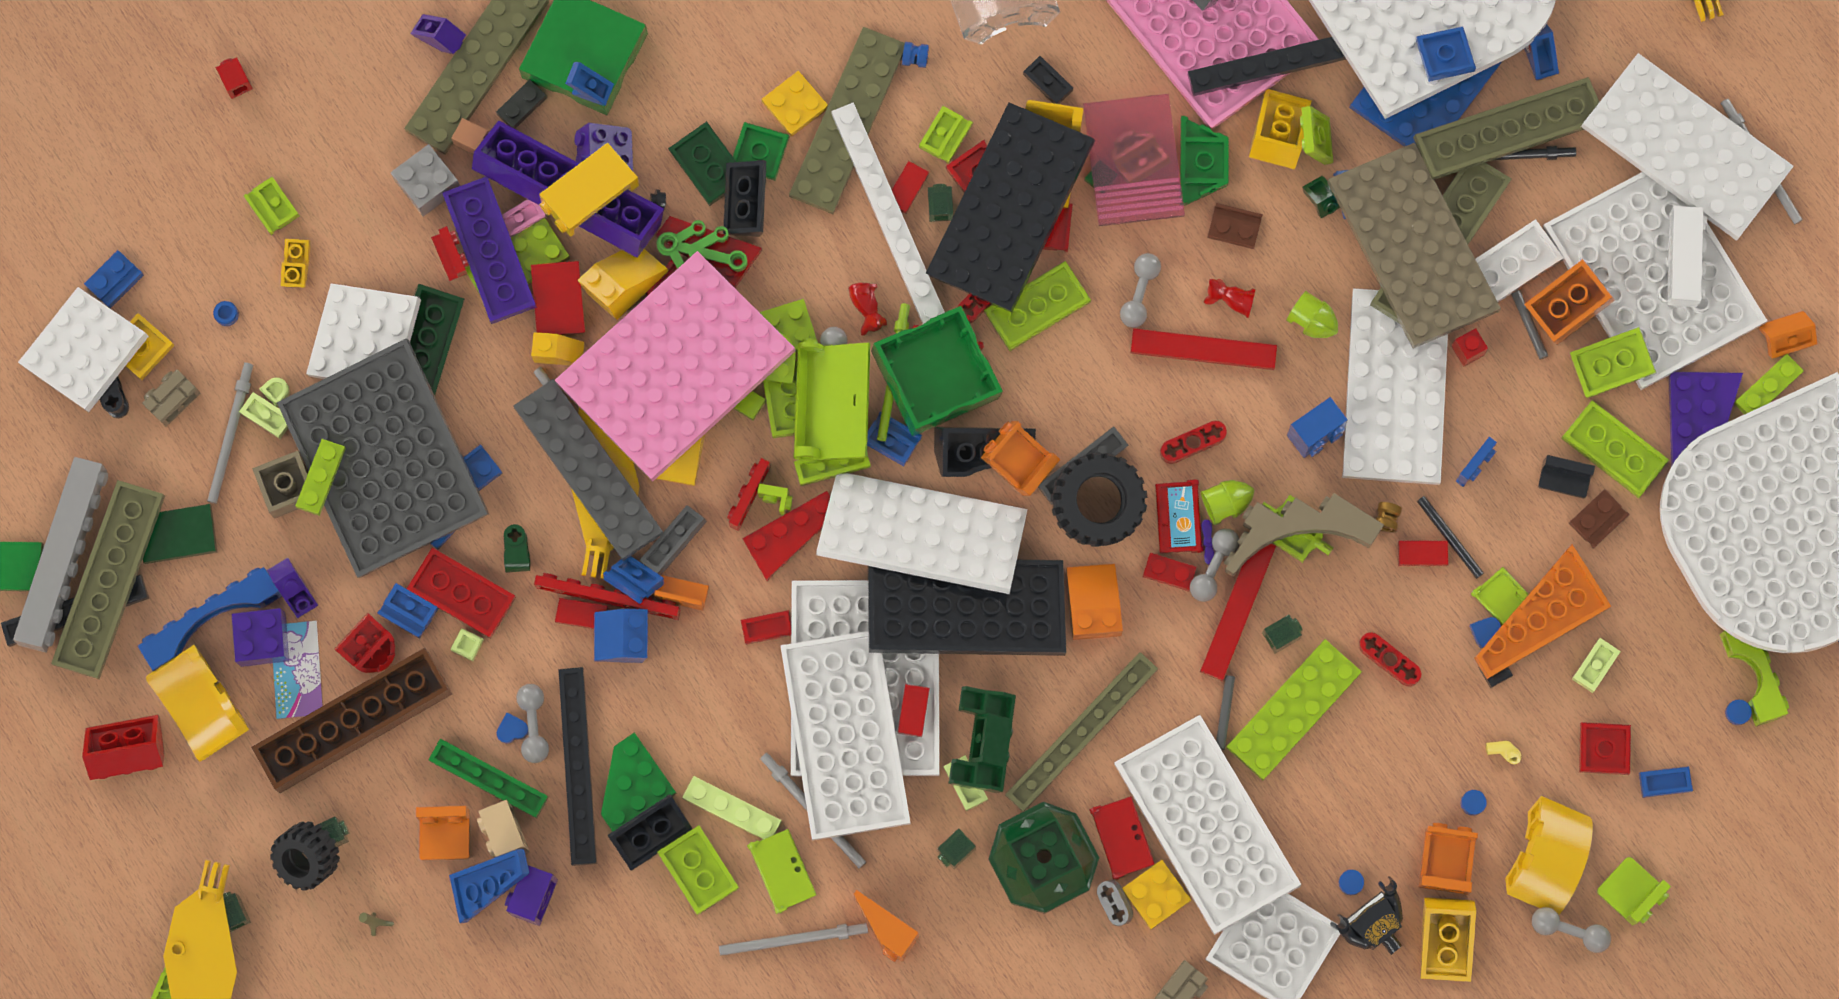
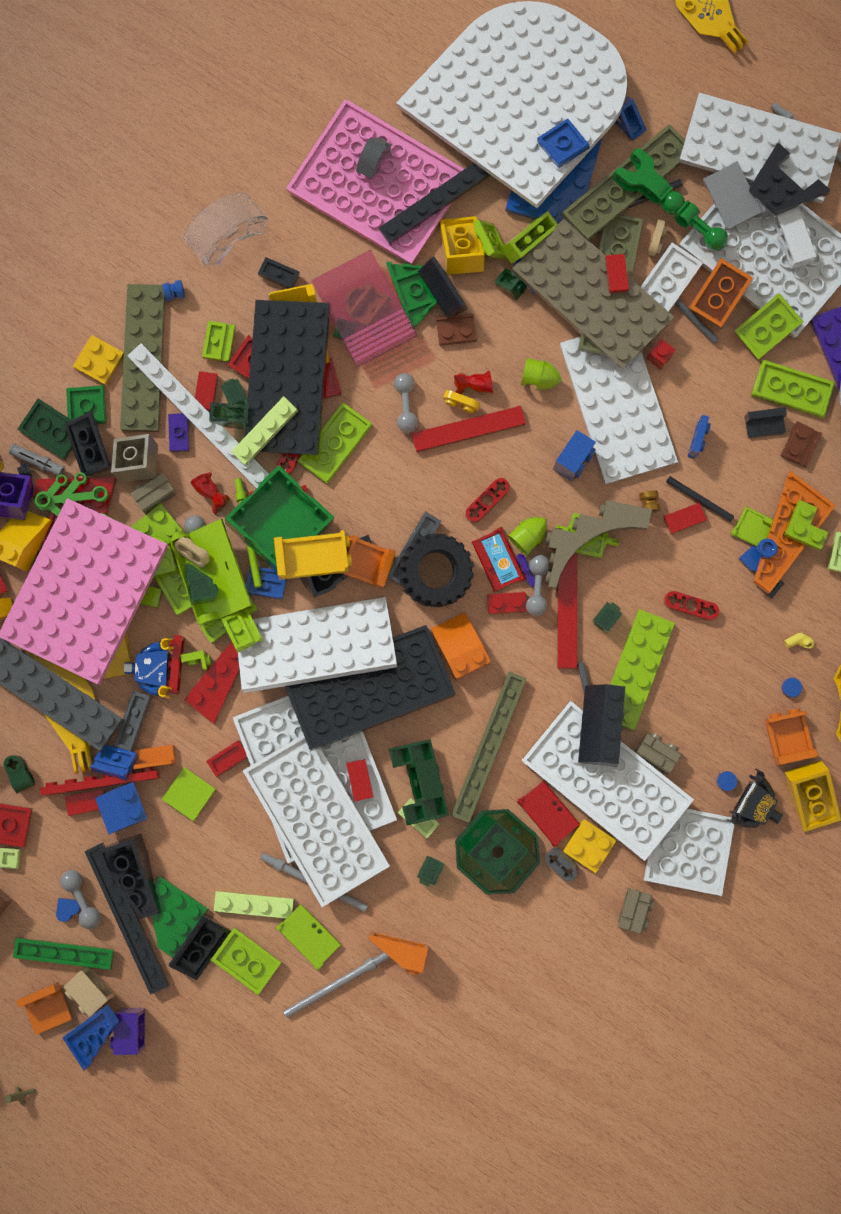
camera: 20 degrees left, 5 degrees up
(604, 710) = (130, 867): none -> black wedge
(658, 175) = (18, 451): none -> light grey pin
(705, 651) = (189, 794): none -> lime tile
(719, 486) = (152, 668): none -> blue torso
(794, 234) = (134, 458): none -> dark tan brick
(800, 282) = (153, 493): none -> dark tan brick
(813, 411) = (199, 585): none -> clear green slope
(820, 369) = (192, 552): none -> tan plate
(842, 481) = (241, 630): none -> lime plate
(856, 224) = (178, 433): none -> dark purple plate
(925, 226) = (229, 415): none -> clear green slope
(959, 259) = (264, 431): none -> yellowish green plate
(960, 425) = (312, 555): none -> yellow panel
(1201, 308) = (454, 399): none -> yellow plate
(1225, 755) = (601, 725): none -> black slope
(1236, 171) = (442, 288): none -> black slope
(1281, 817) = (658, 753): none -> dark tan brick
(1364, 149) = (529, 237): none -> lime brick
(1451, 231) = (616, 273): none -> red tile
(1505, 624) = (766, 548): none -> blue tile
(1527, 200) = (656, 245): none -> tan plate
(1552, 172) = (660, 192): none -> green piece
(1556, 617) = (801, 528): none -> lime plate
(1629, 191) = (732, 195): none -> light grey tile
(1685, 204) = (778, 190): none -> black wing

